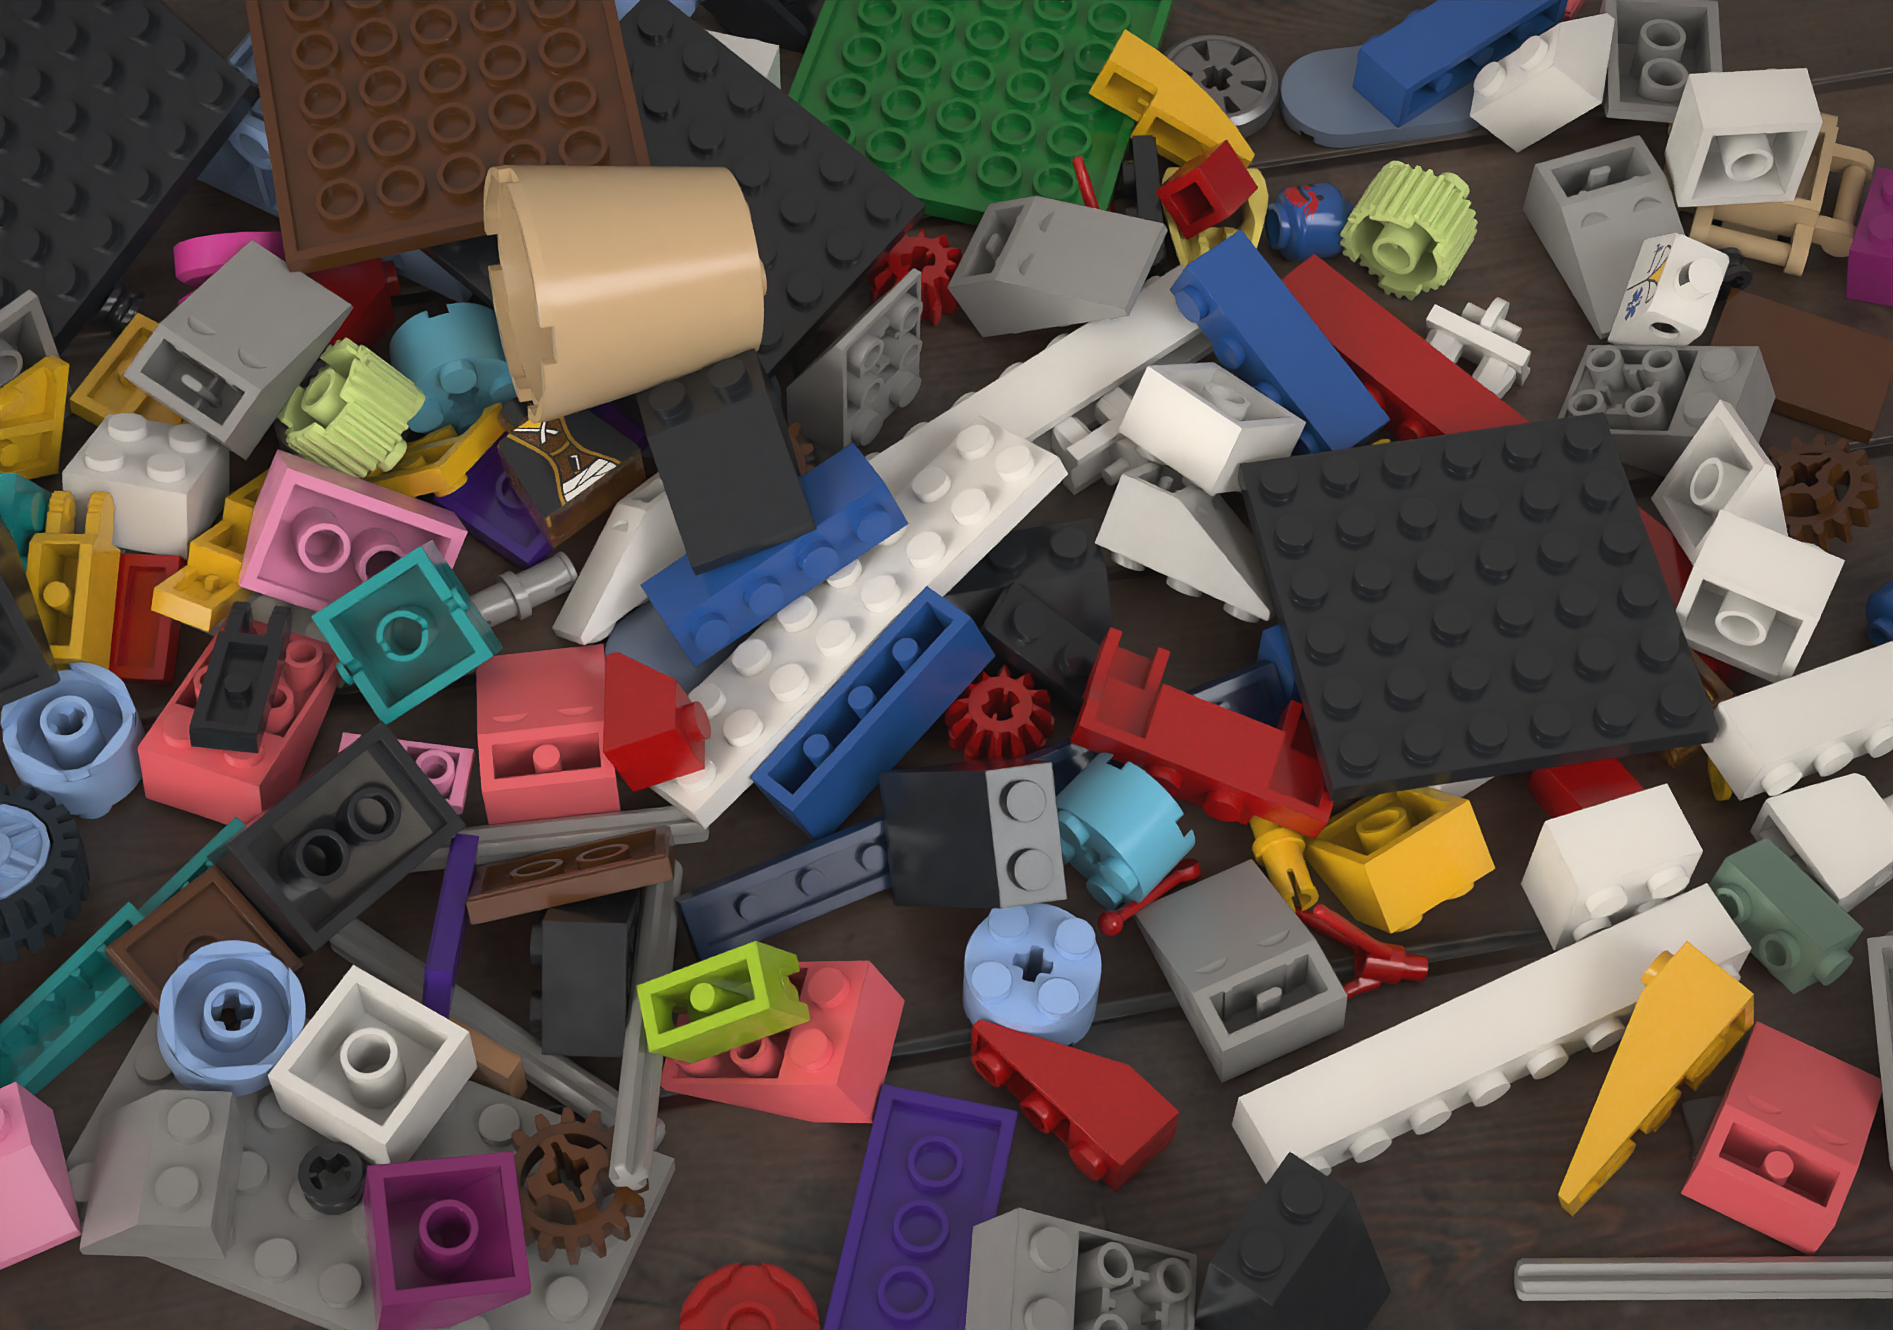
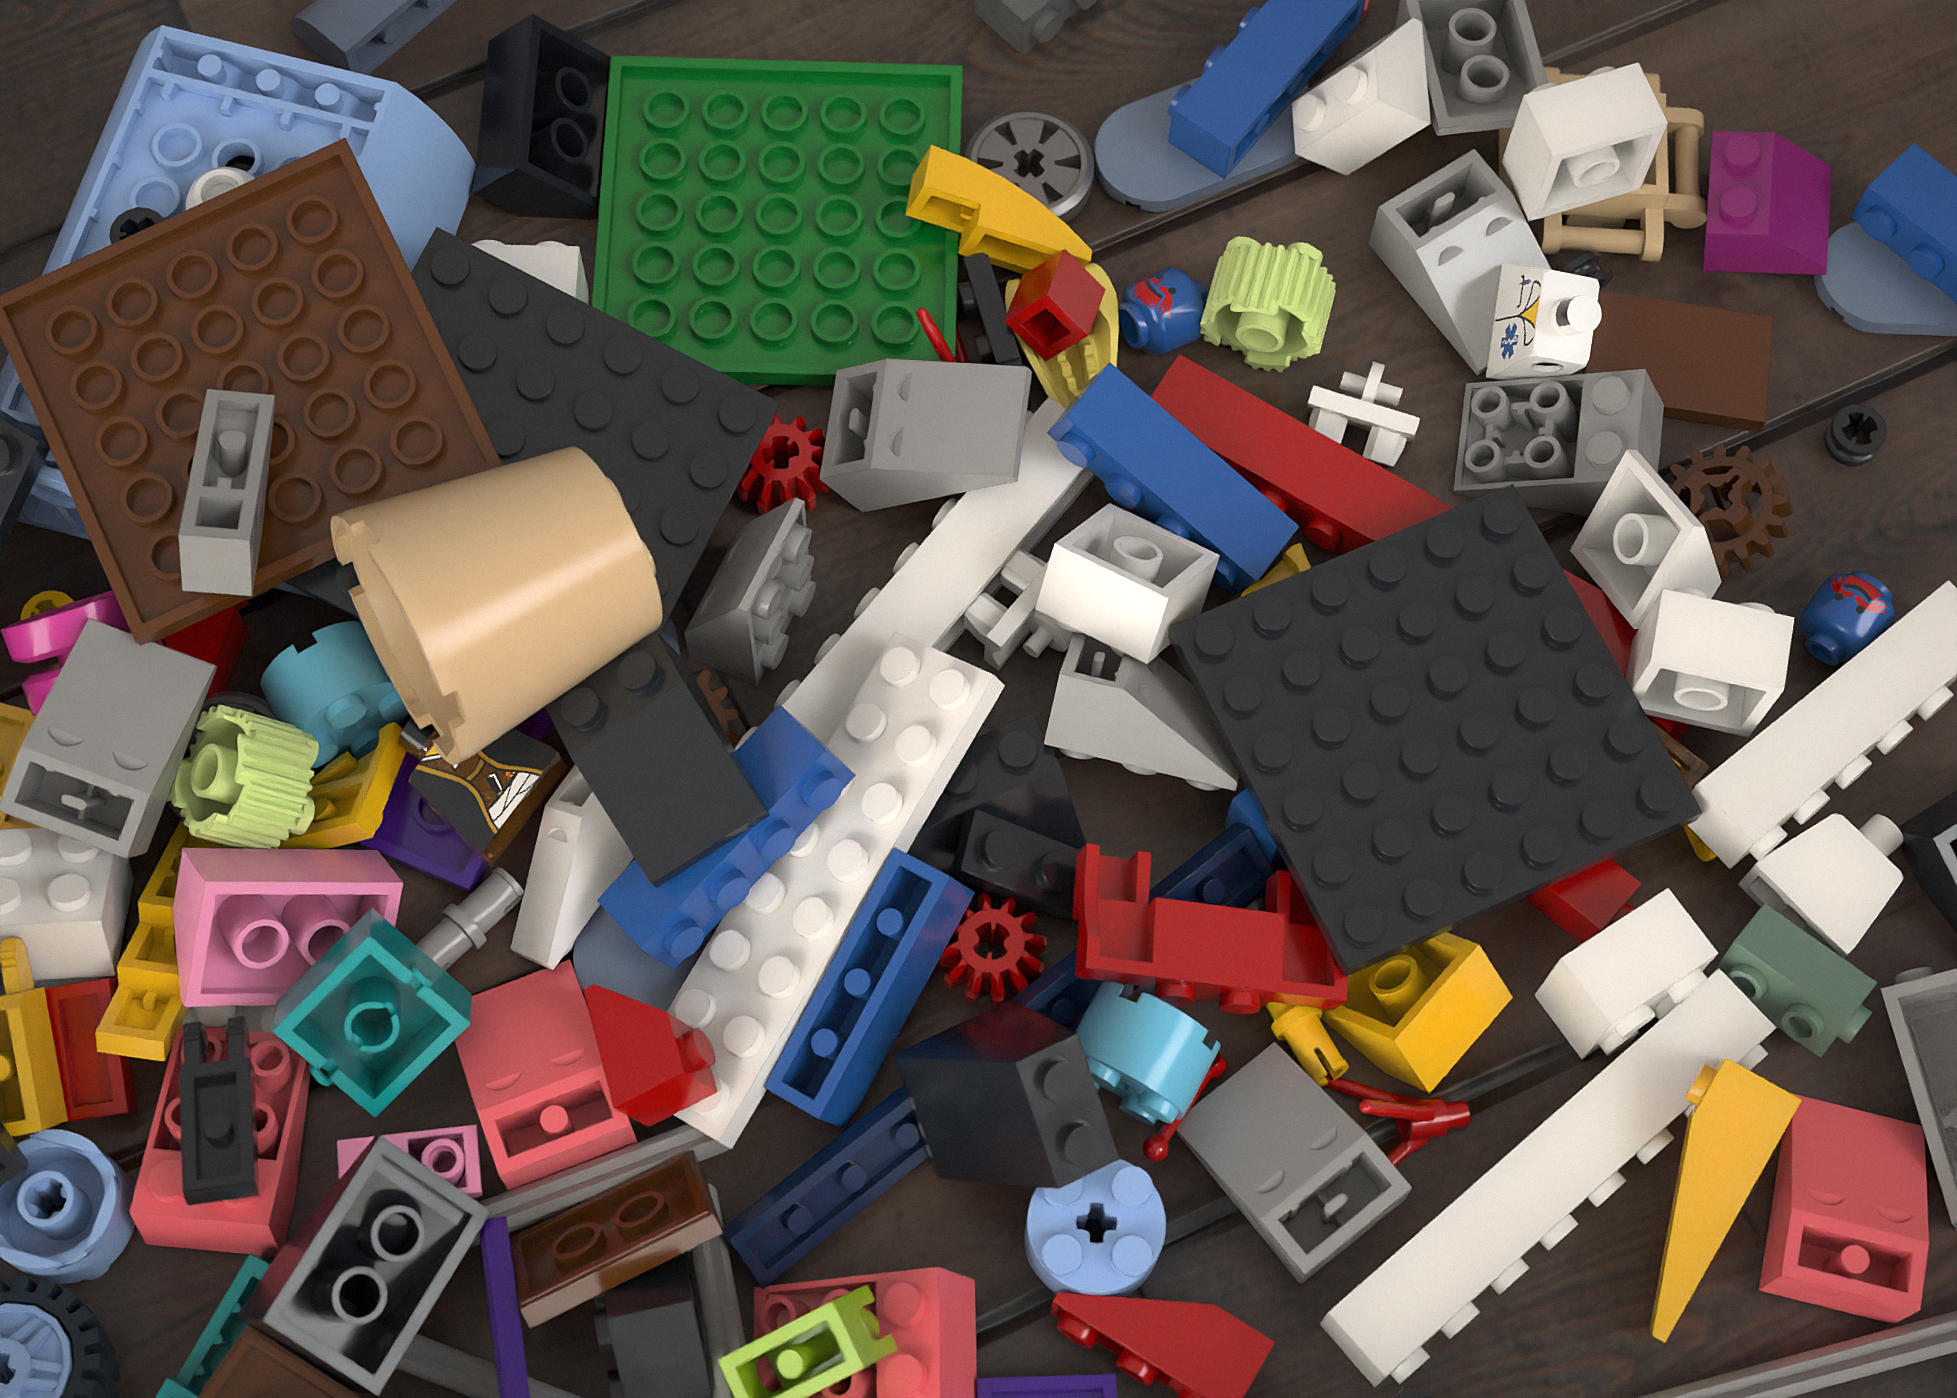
camera: 15 degrees left, 10 degrees up
(400, 152) = (227, 493): none -> light grey slope

